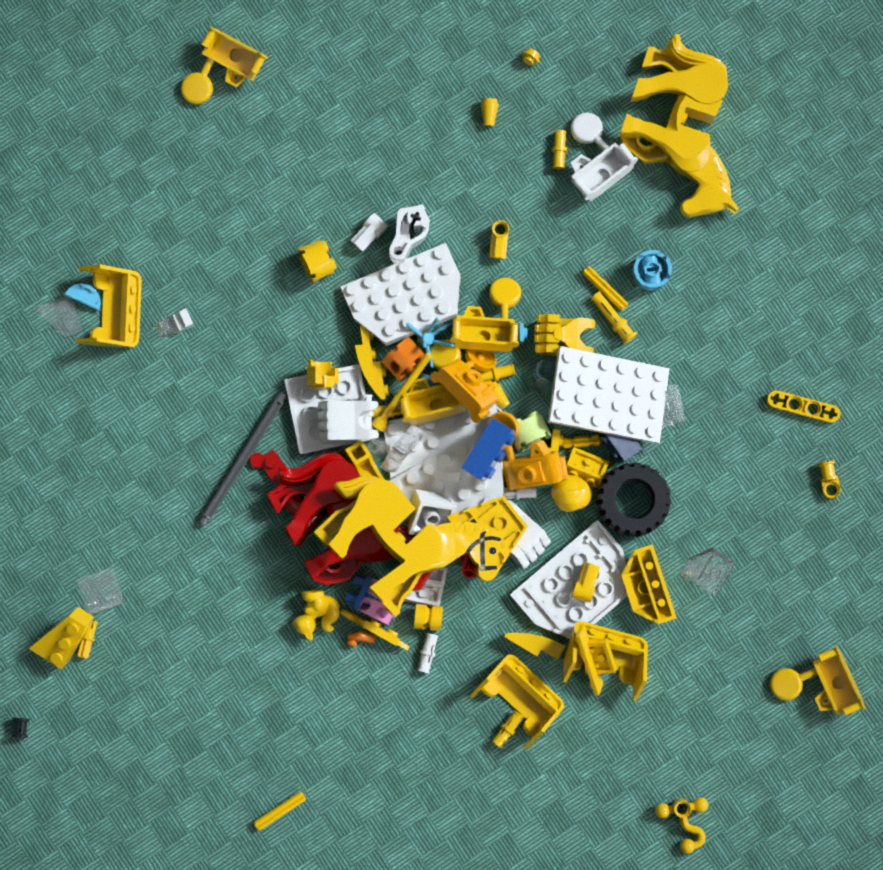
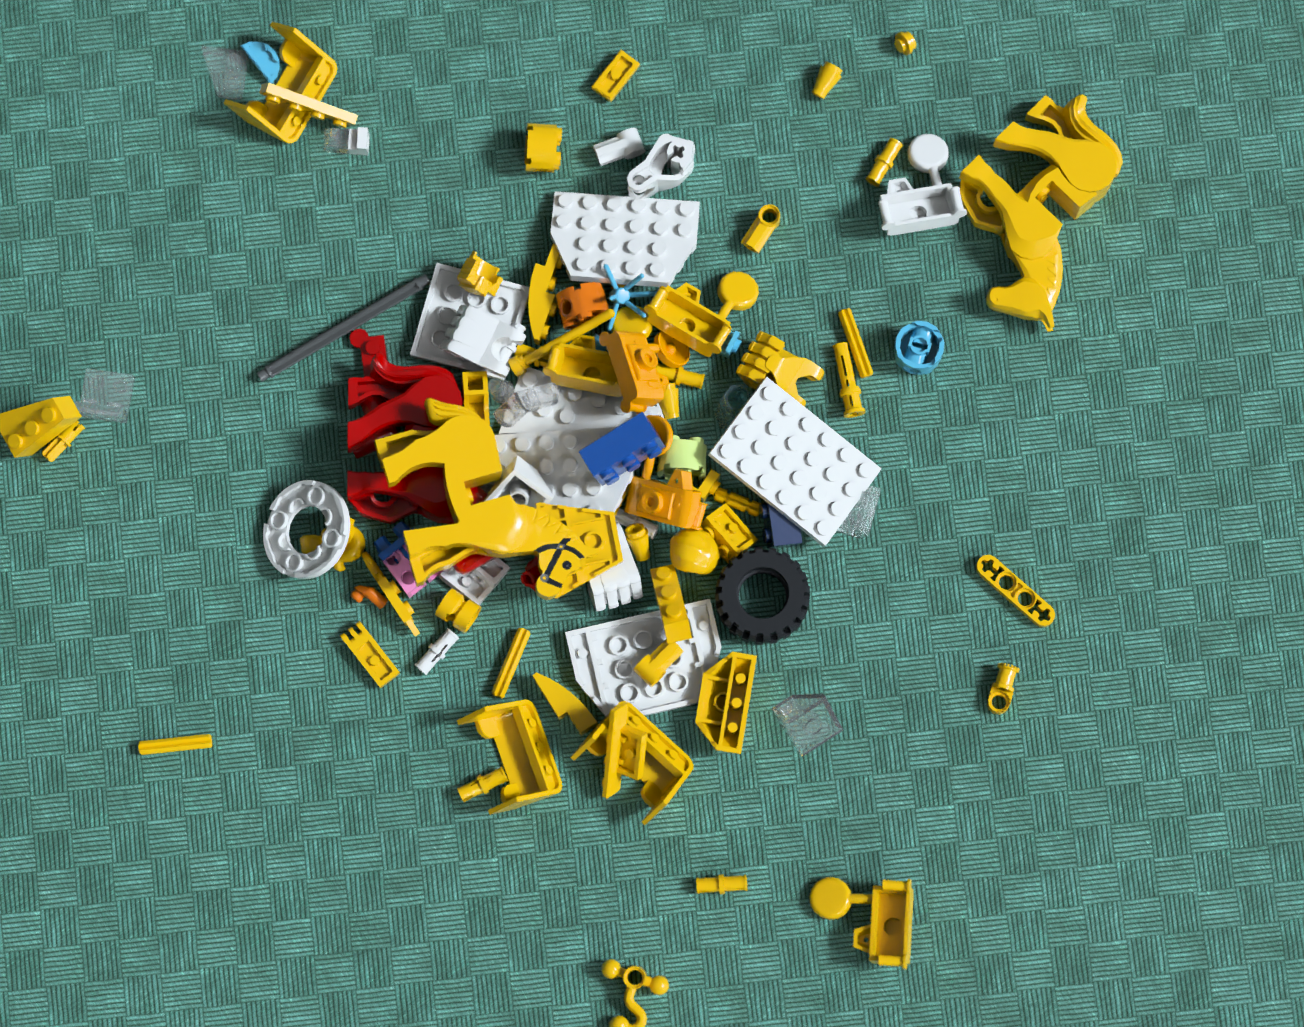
camera: 35 degrees right, 5 degrees down
(129, 315) = (298, 102): none -> yellow plate
(271, 623) = (334, 539): none -> white plate
(340, 182) = (615, 76): none -> yellow plate
(383, 679) = (370, 655): none -> yellow hinge
(482, 630) = (511, 662): none -> yellow axle
(527, 504) = (638, 540): none -> yellow cone
(574, 537) = (670, 603): none -> yellow arch
(707, 713) = (721, 884): none -> yellow pin

